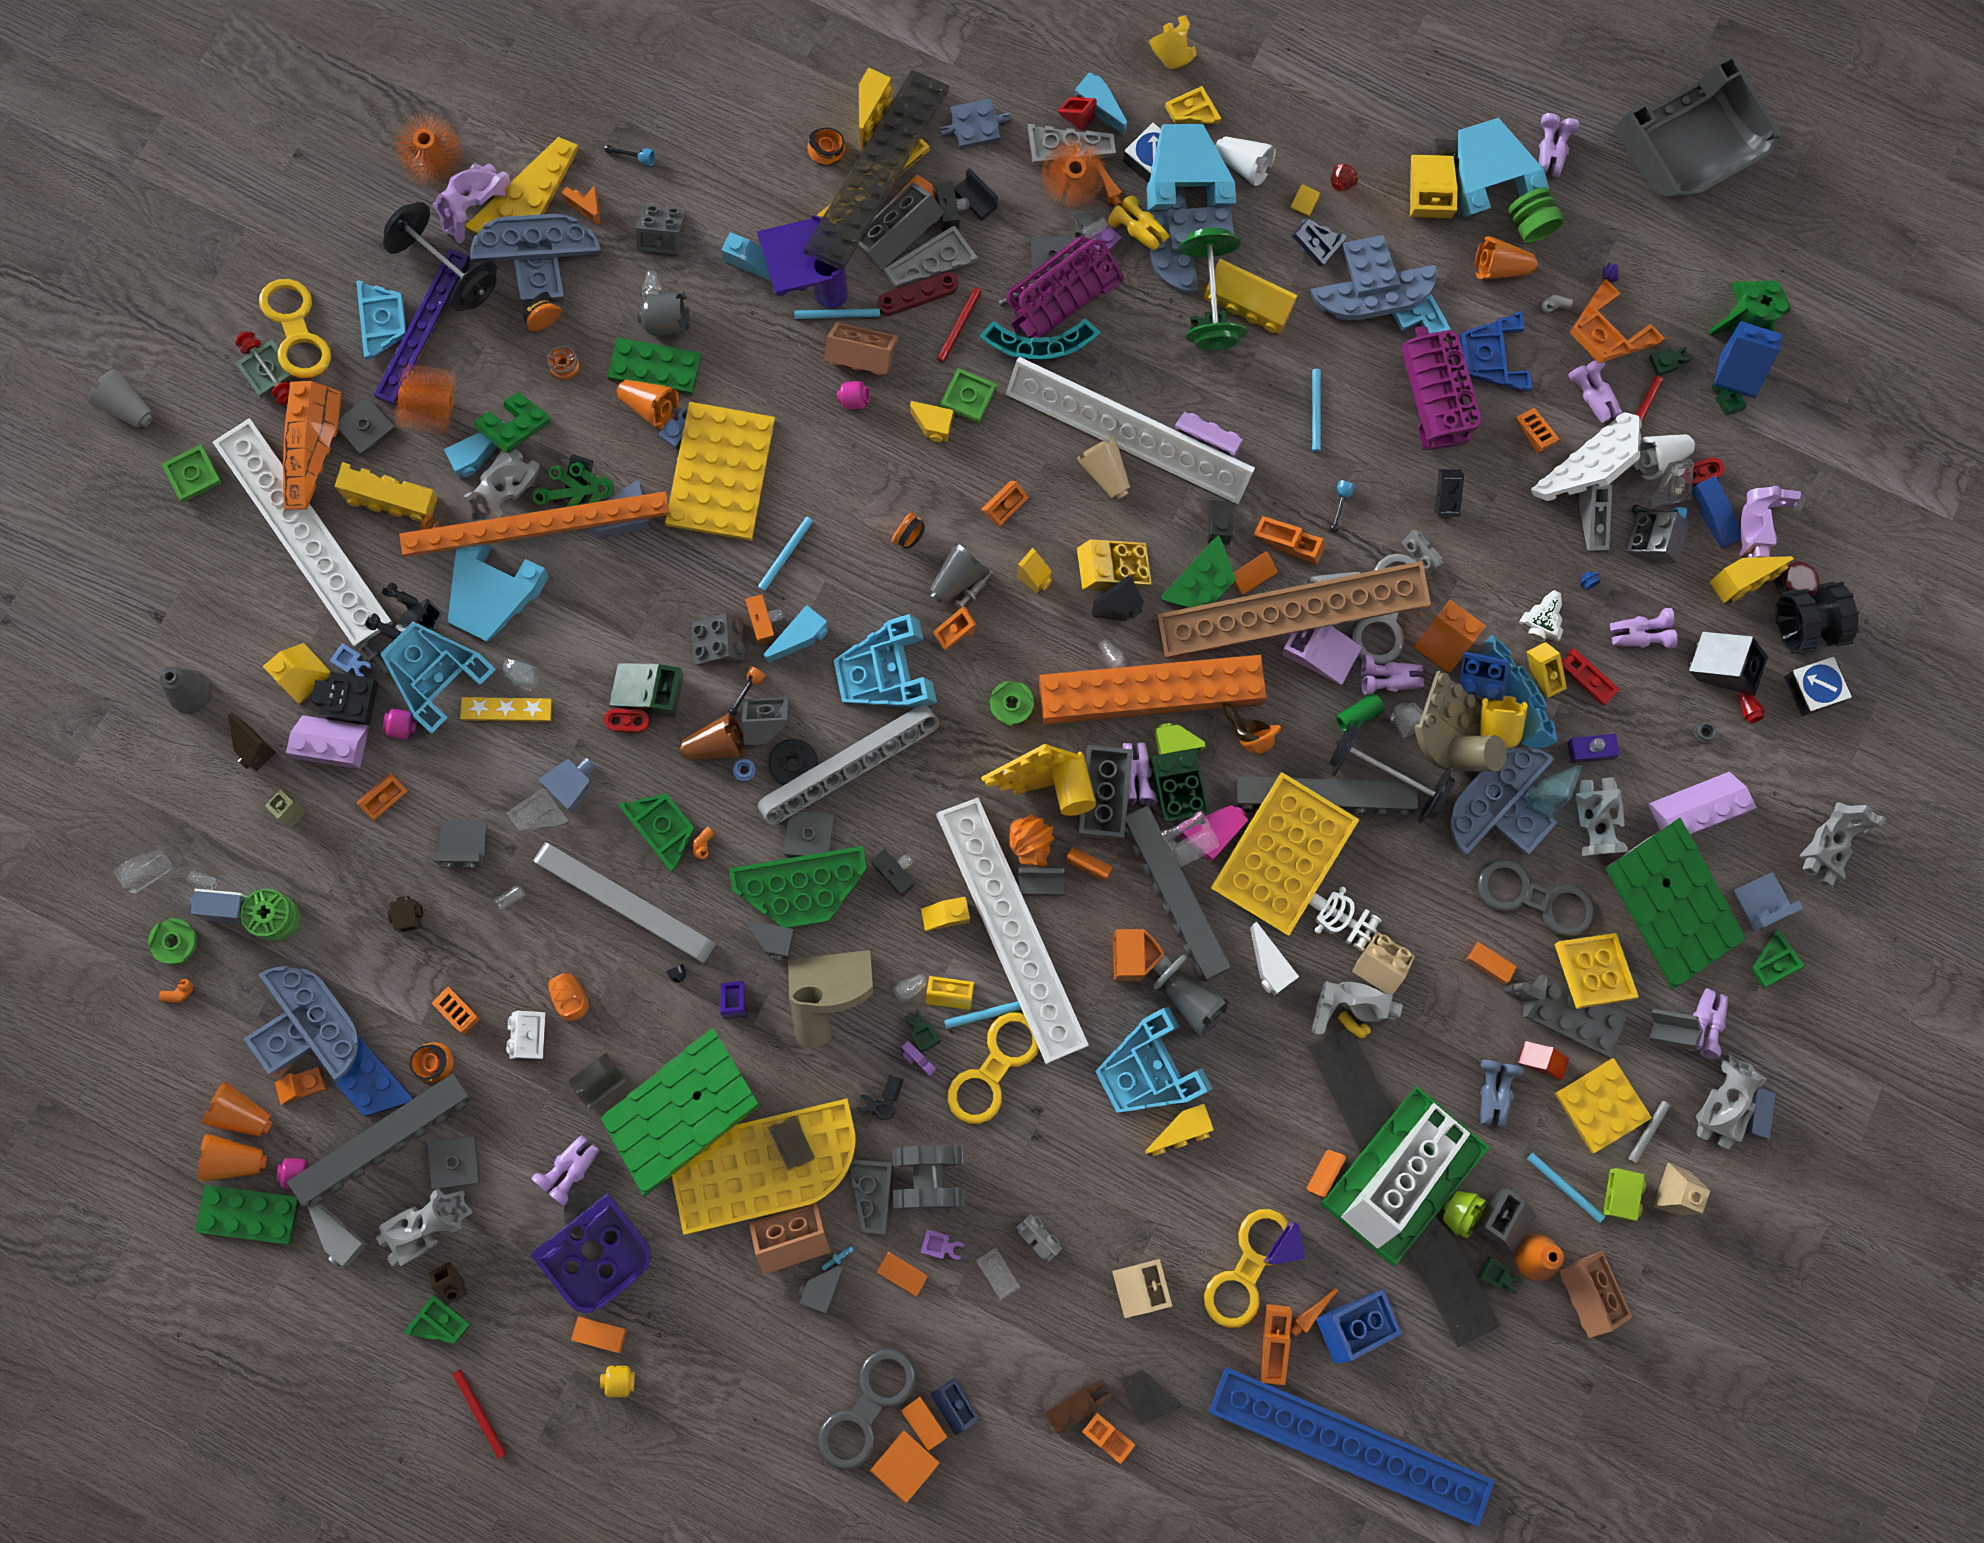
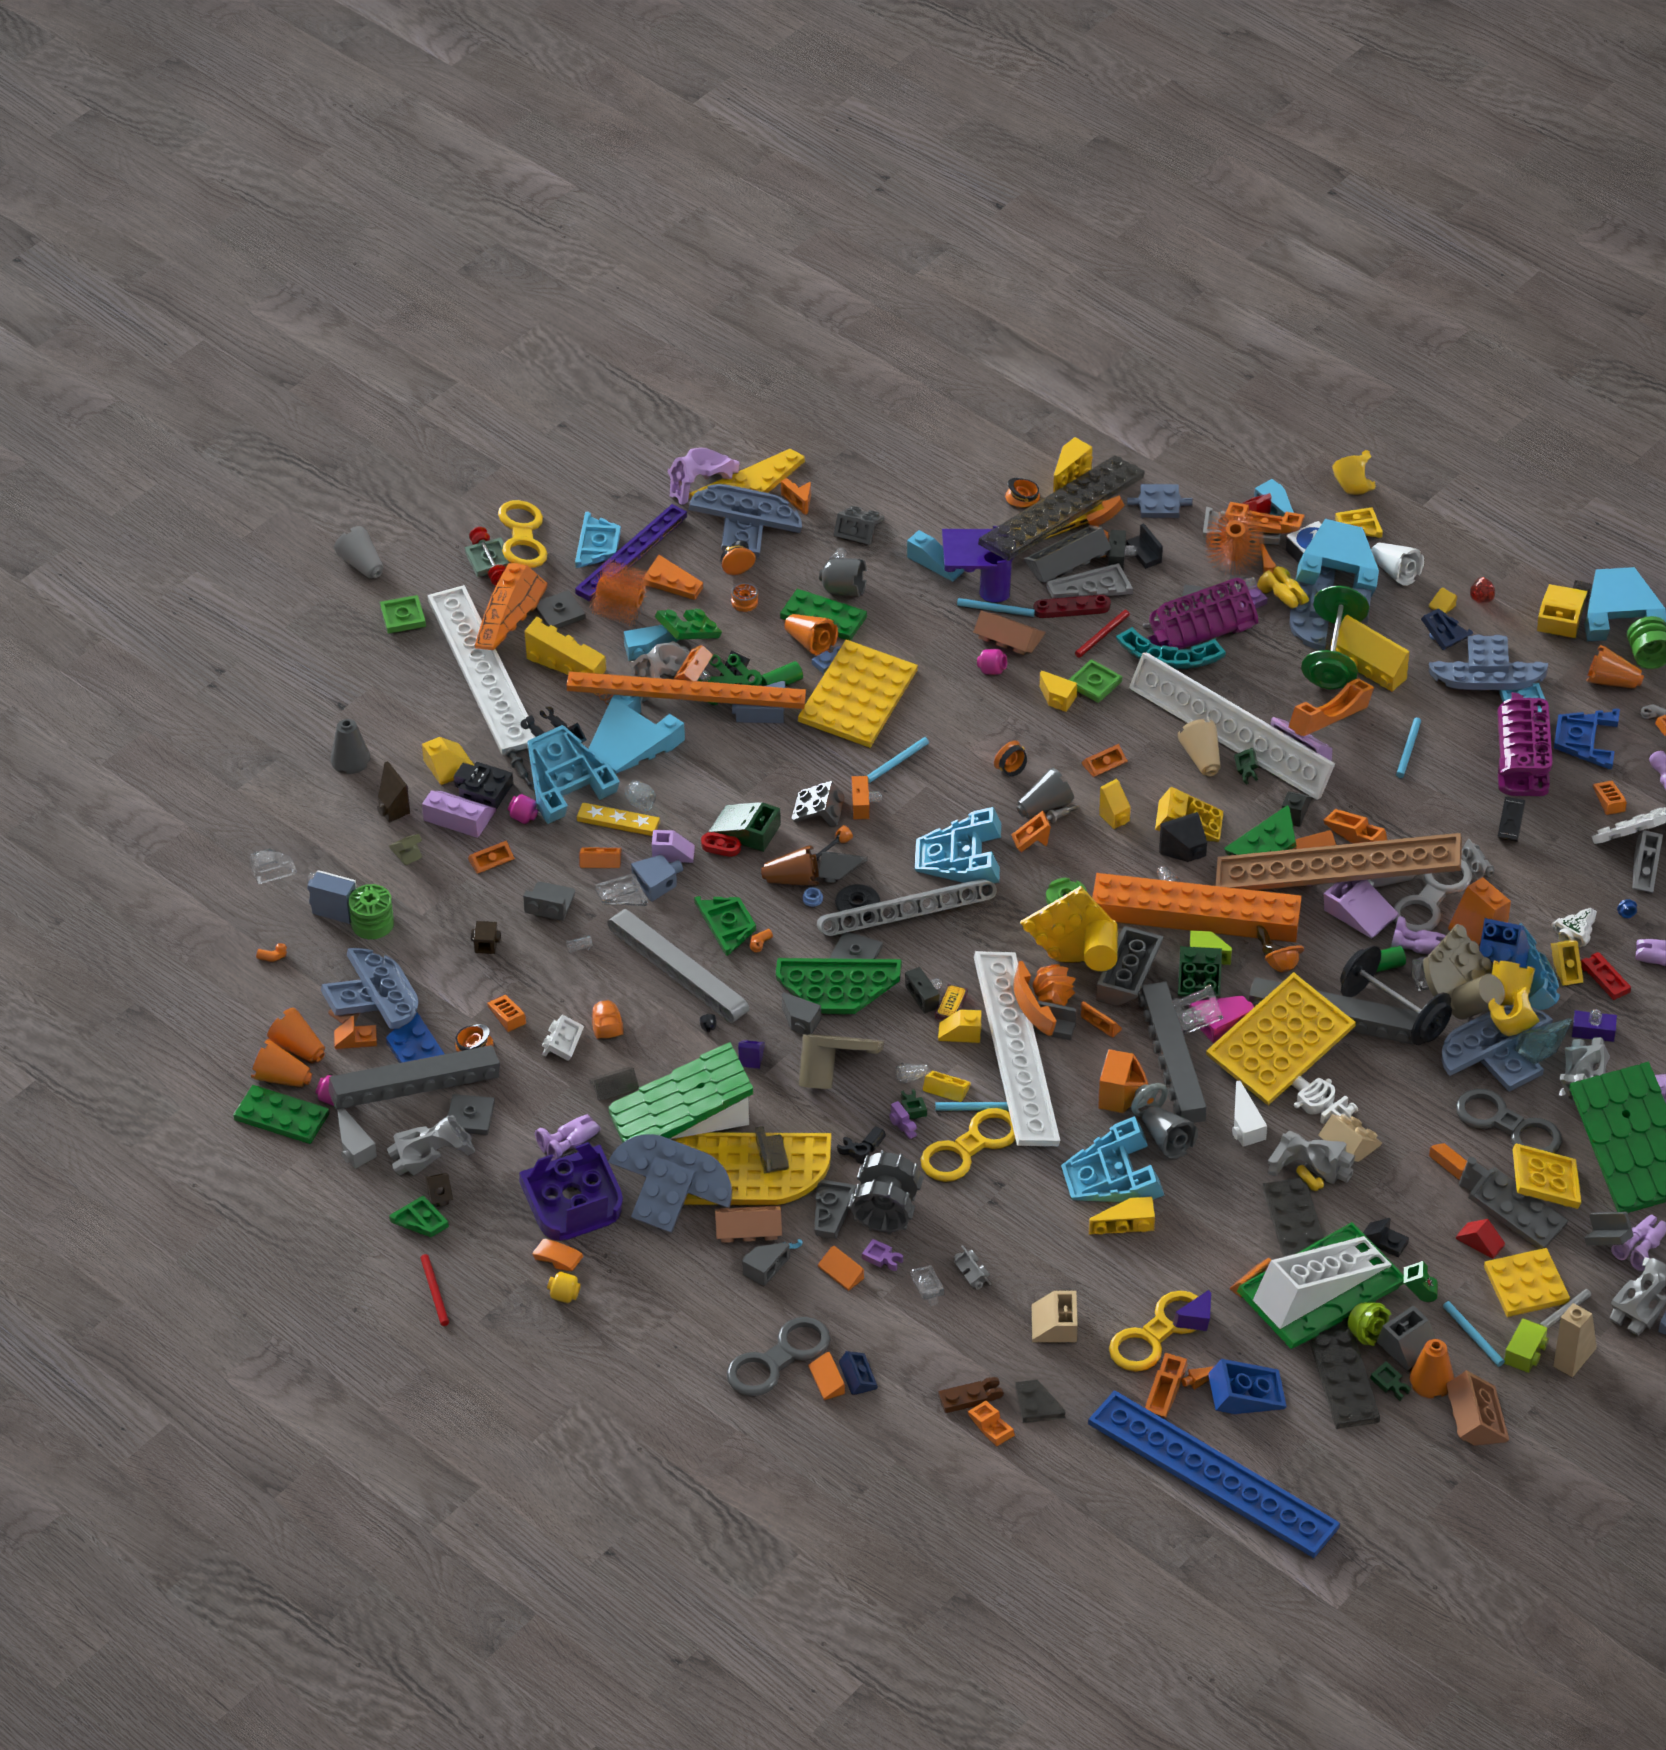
camera: 20 degrees right, 30 degrees down
(178, 953) = (283, 927): bright green plate -> none
(349, 660) = (495, 758): medium blue plate -> none
(407, 226) = (684, 525): black axle -> none
(428, 149) = (677, 432): orange piece -> none
(476, 352) = (672, 579): none -> orange wing
(500, 766) = (600, 857): none -> orange slope
(535, 488) = (694, 665): none -> orange piece
(576, 742) = (672, 846): none -> lavender slope
(632, 468) = (789, 673): none -> green pin
(645, 156) = (861, 474): hinge -> none
(694, 1211) = (670, 1175): none -> sand blue plate
(801, 633) = (891, 813): medium azure slope -> none
(904, 1467) = (799, 1402): orange slope -> none
(927, 154) = (1111, 508): none -> orange slope
(927, 879) = (951, 1001): none -> tile
(1032, 888) = (1039, 1016): none -> orange slope
(1100, 134) = (1272, 524): none -> orange slope
(1142, 770) = (1169, 960): lavender piece -> none
(1155, 474) = (1246, 763): none -> dark green plate
(1232, 392) = (1350, 700): none -> orange arch
(1344, 490) = (1417, 805): hinge -> none
(1447, 1084) = (1386, 1238): none -> black slope
(1498, 1099) = (1421, 1251): sand blue piece -> none
(1504, 1145) = (1420, 1282): none -> green leg
(1524, 773) = (1519, 1019): none -> yellow piece

